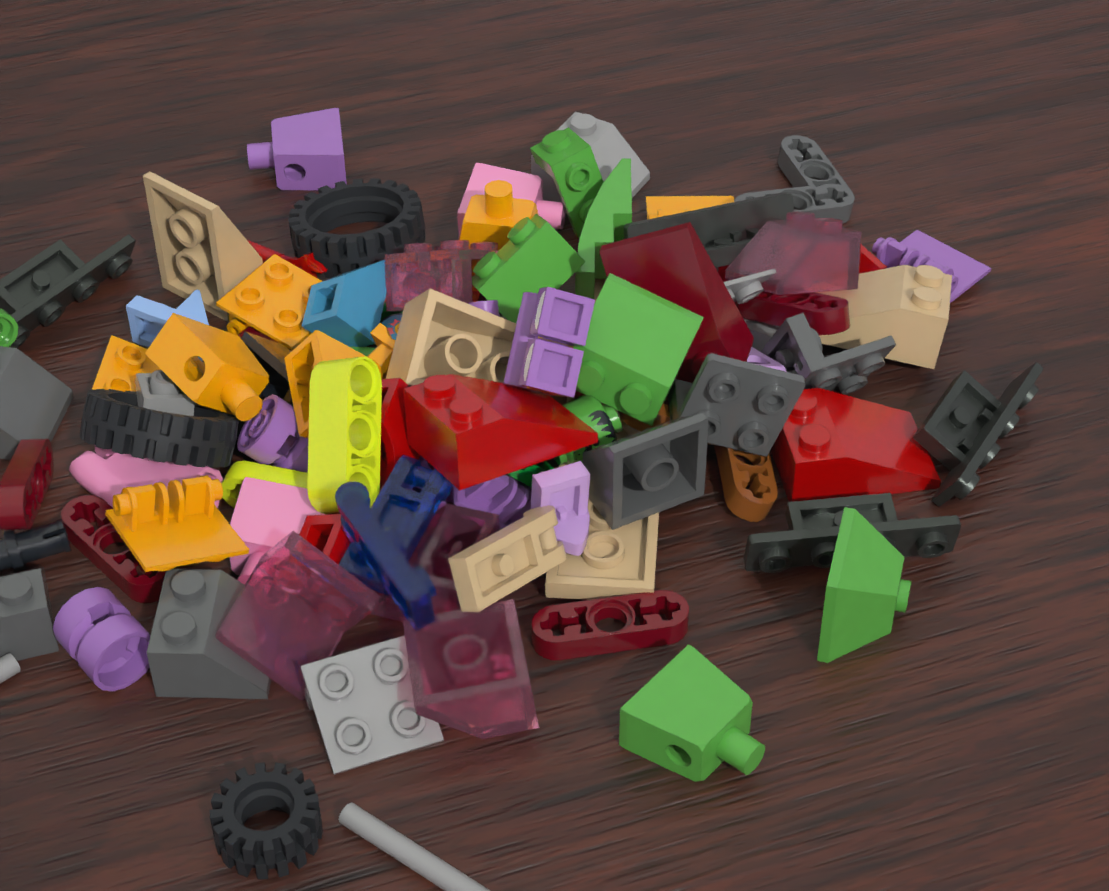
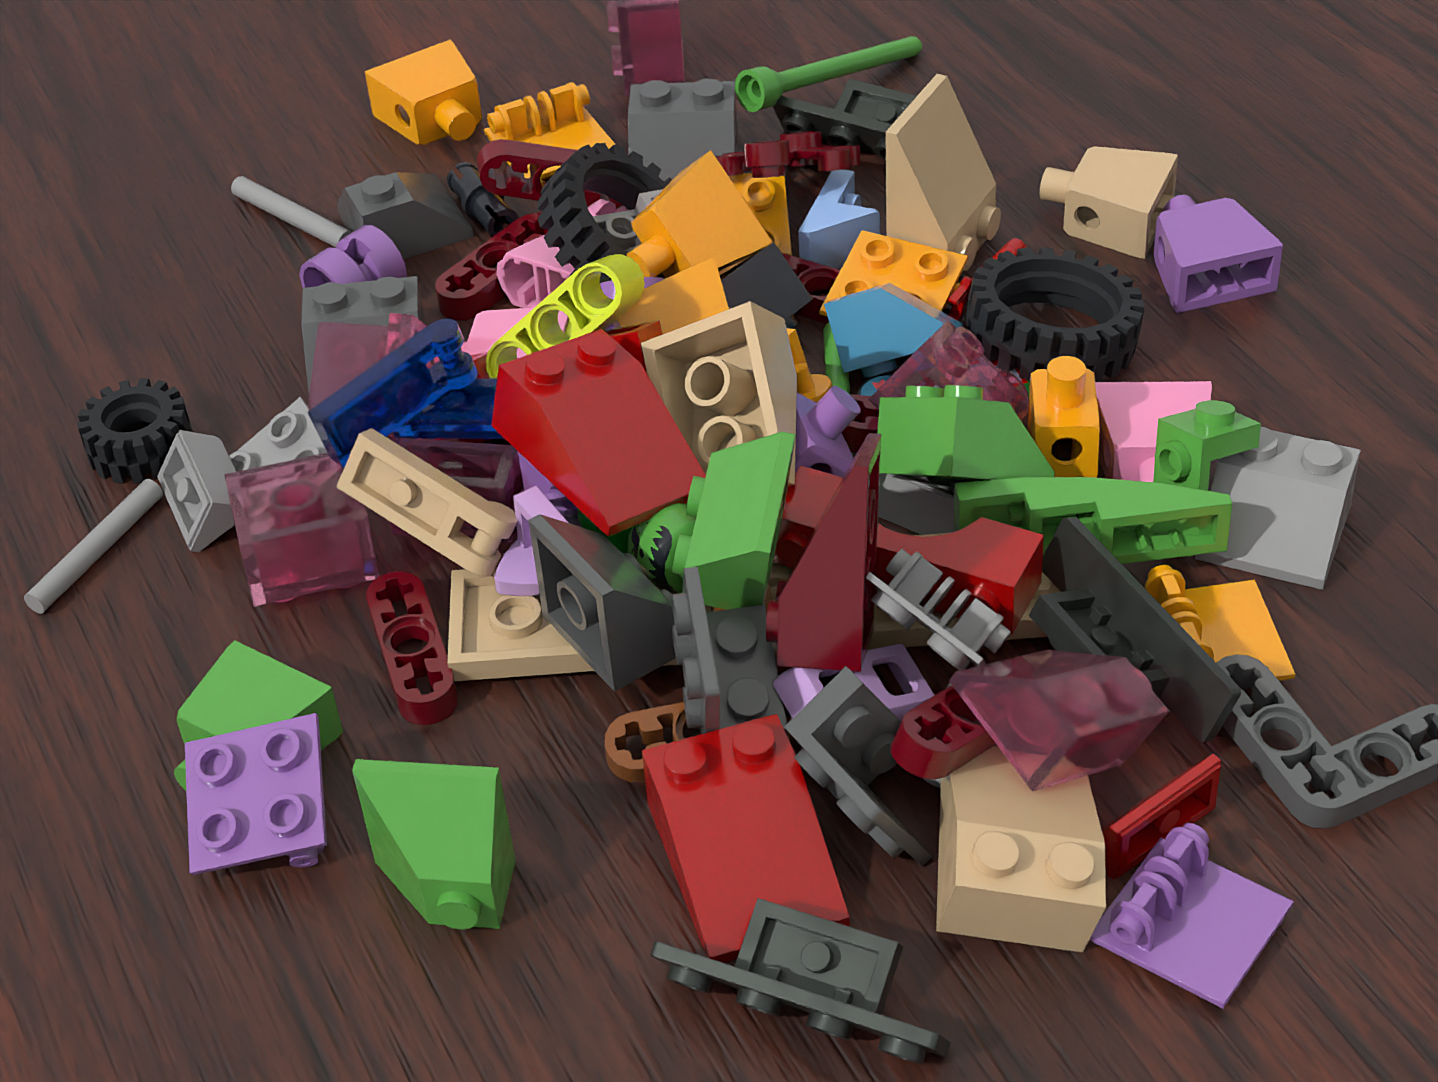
camera: 85 degrees right, 0 degrees up
(99, 316) = (794, 149): none -> dark red plant
(175, 524) = (465, 264): light orange hinge -> none
(226, 176) = (1114, 196): none -> tan torso
(374, 766) = (197, 487): none -> light grey slope
(542, 341) = (699, 415): medium lavender hips -> none
(790, 700) = (256, 796): none -> medium lavender hinge
(816, 526) = (573, 846): pearl dark grey bracket -> none

